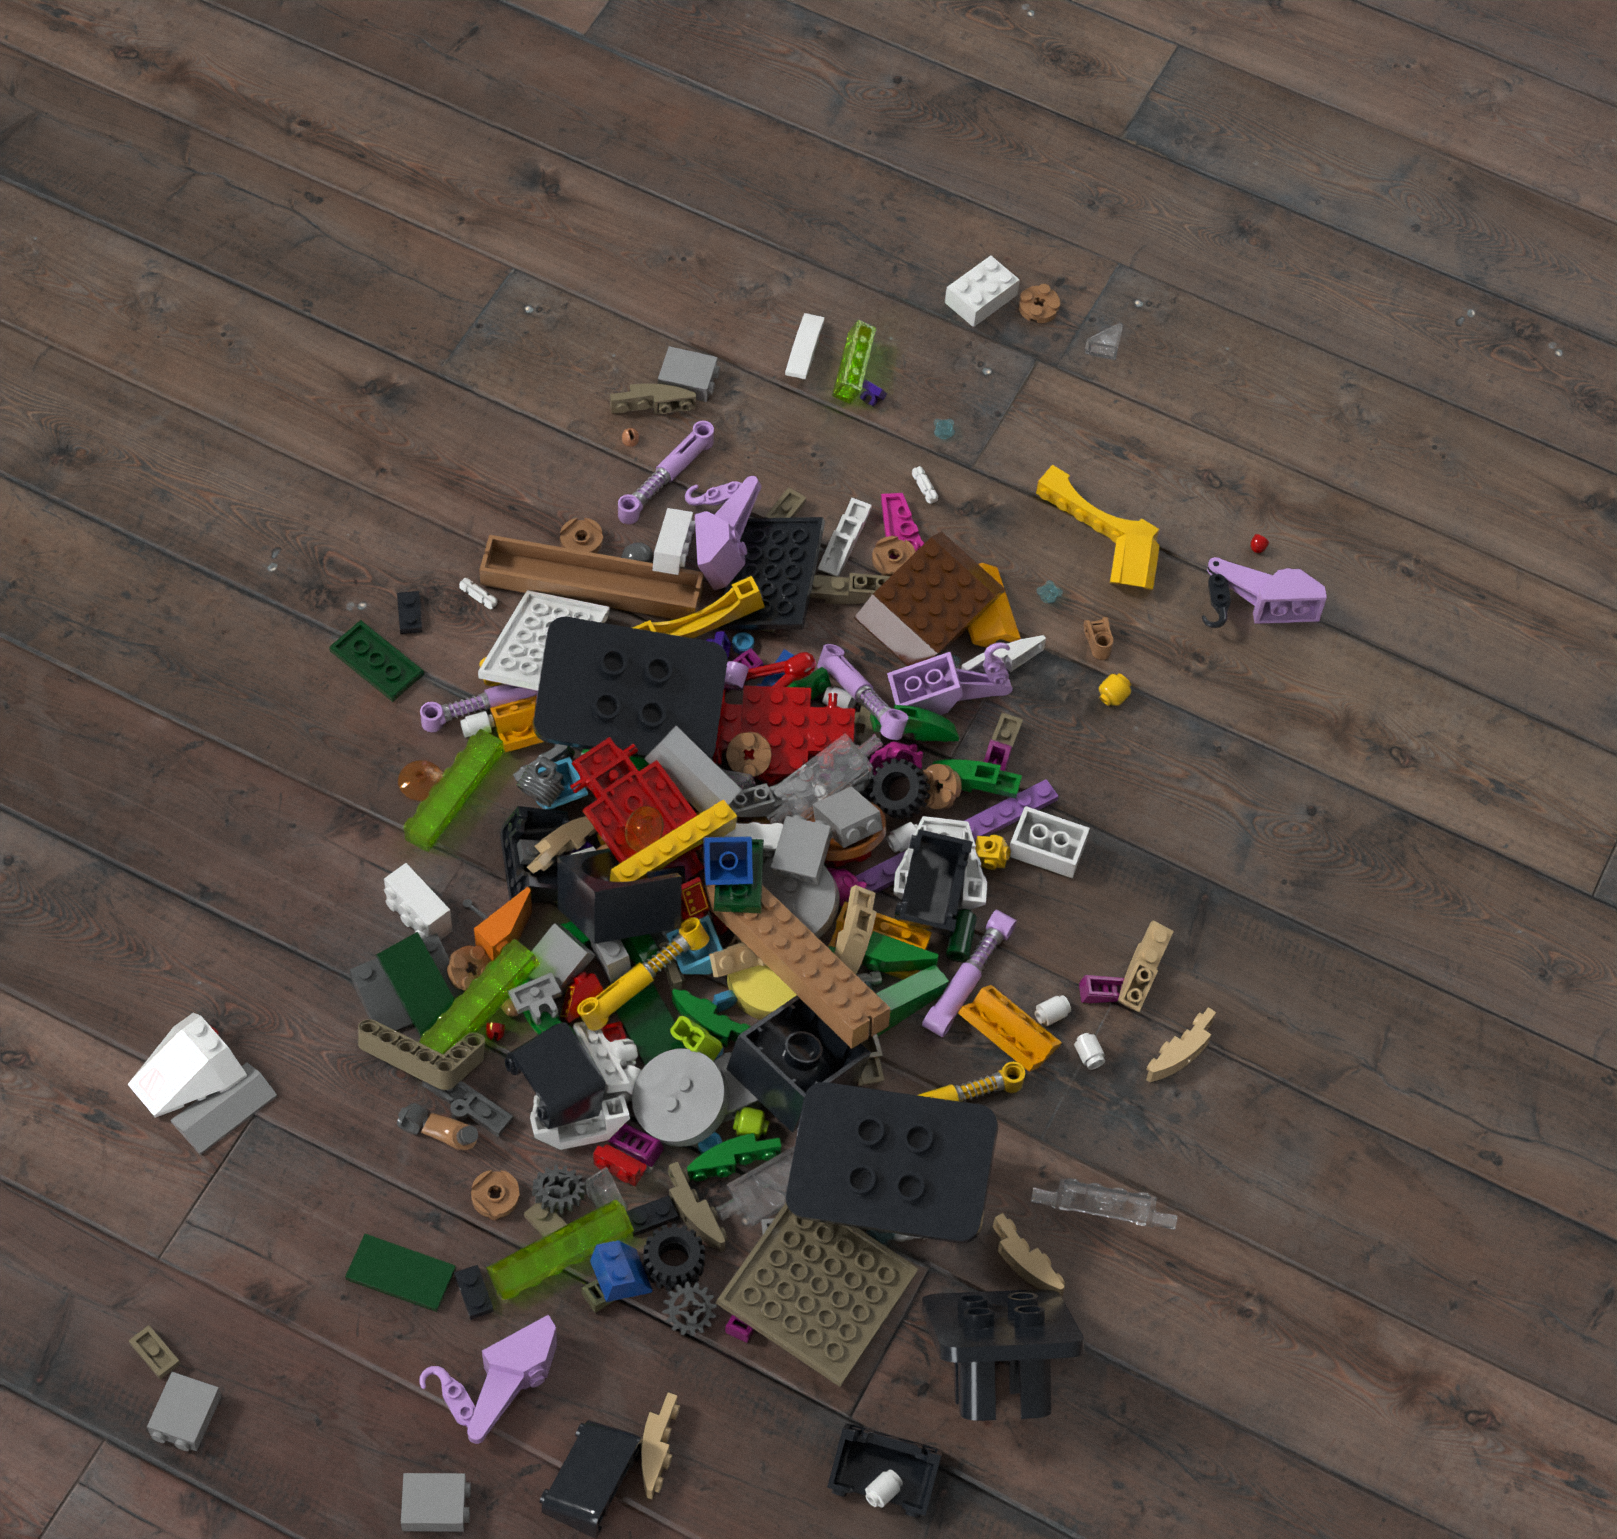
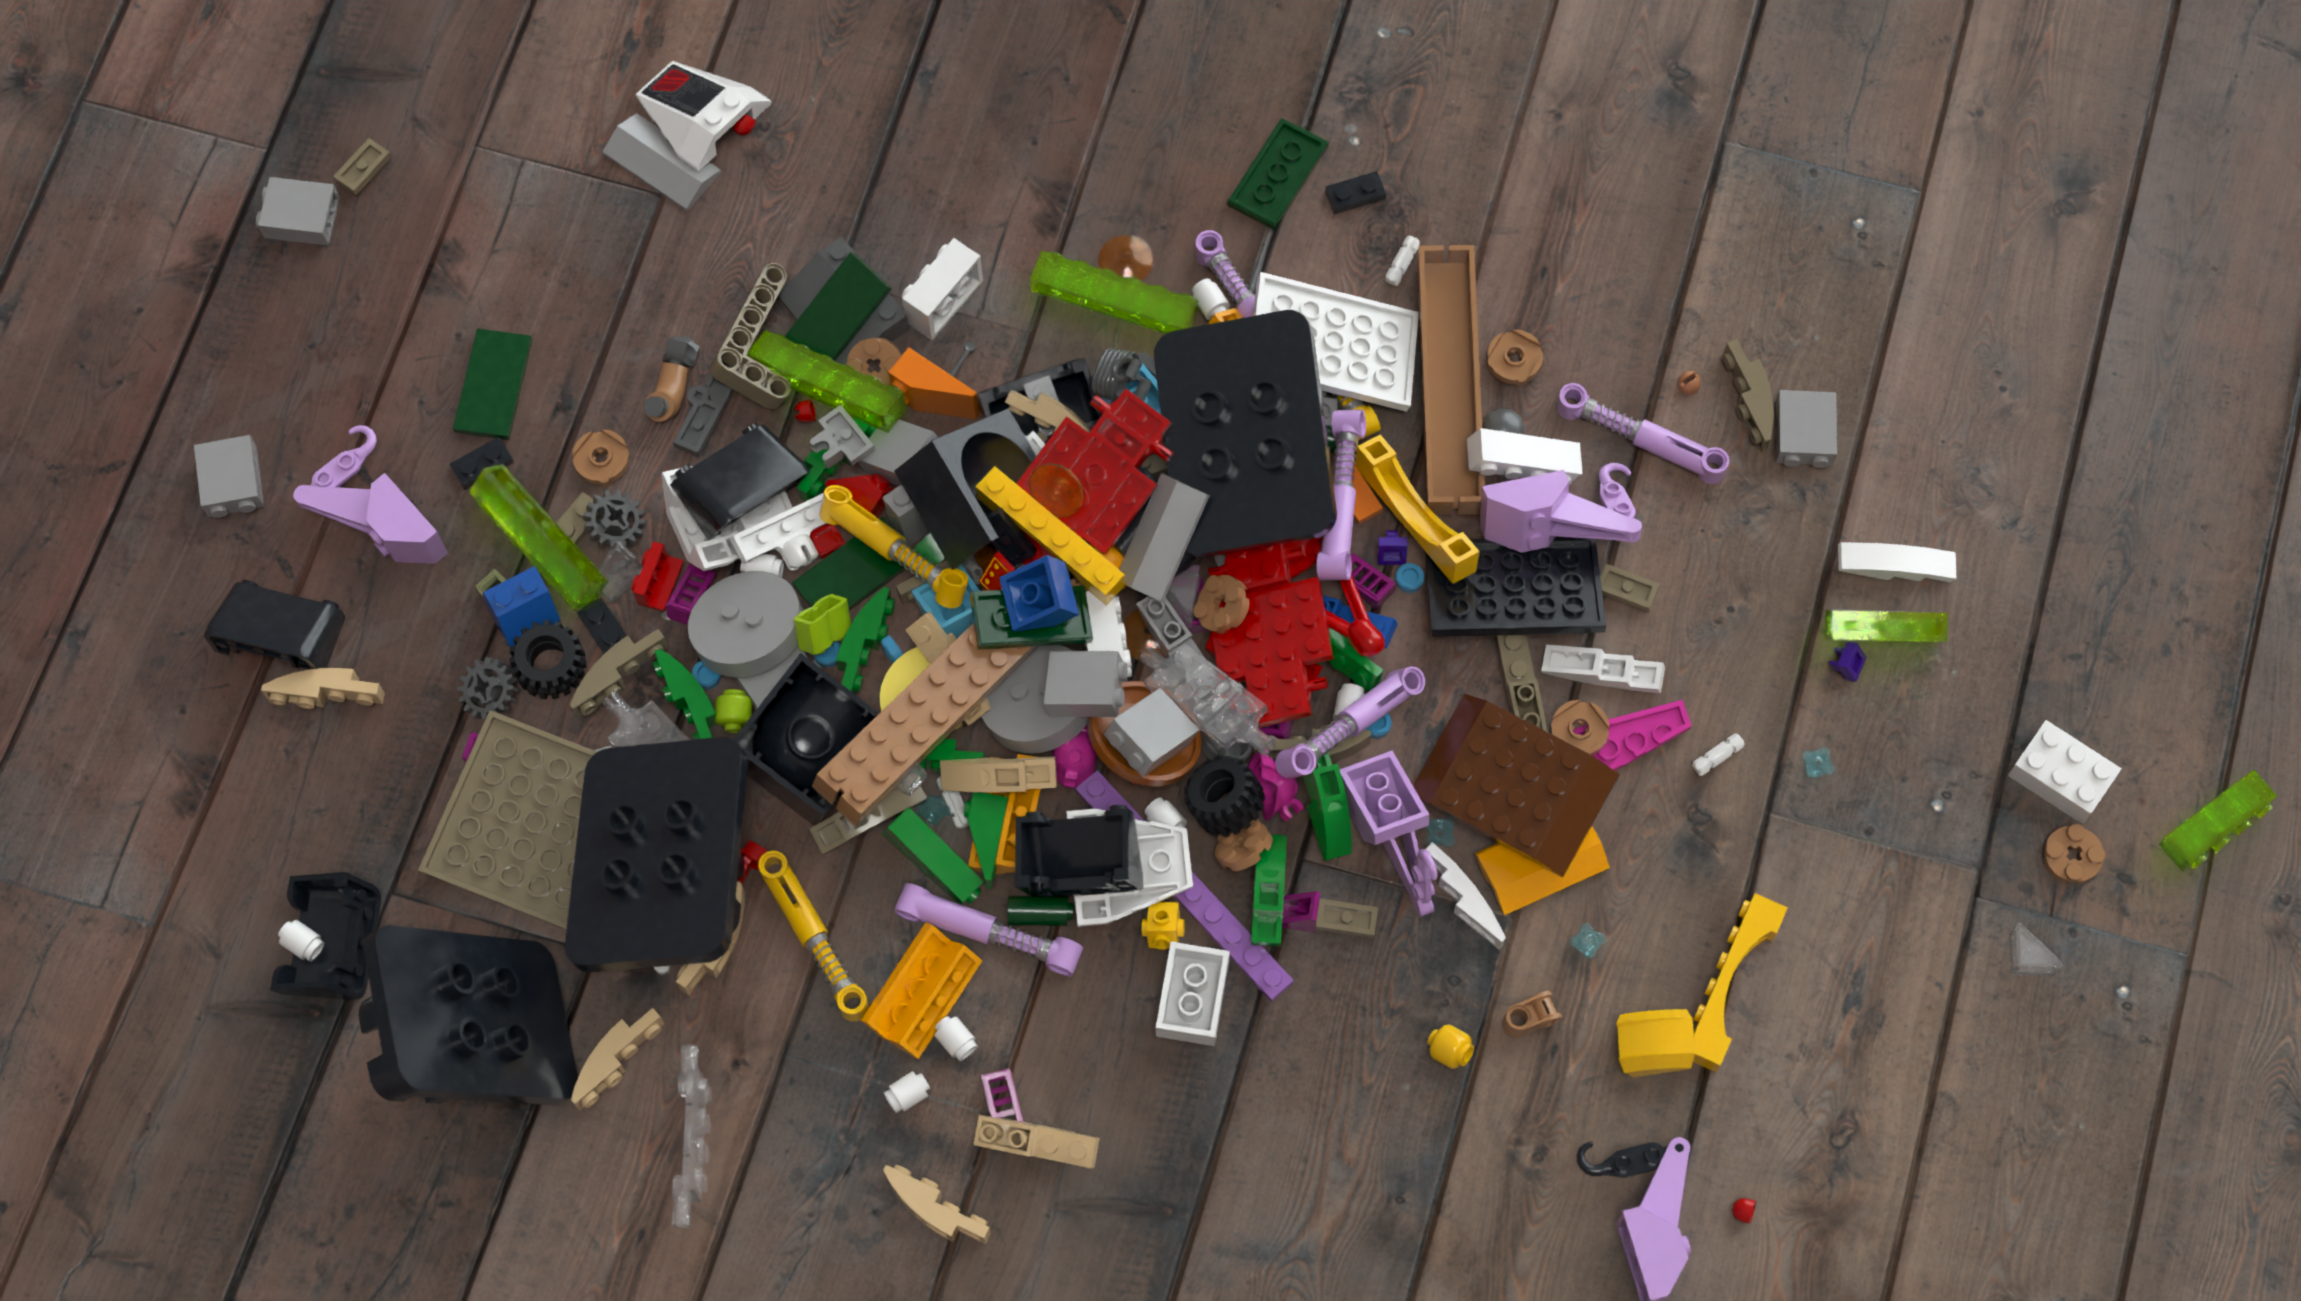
camera: 85 degrees right, 10 degrees up
(1033, 219) = (2218, 820): none -> clear neon green brick

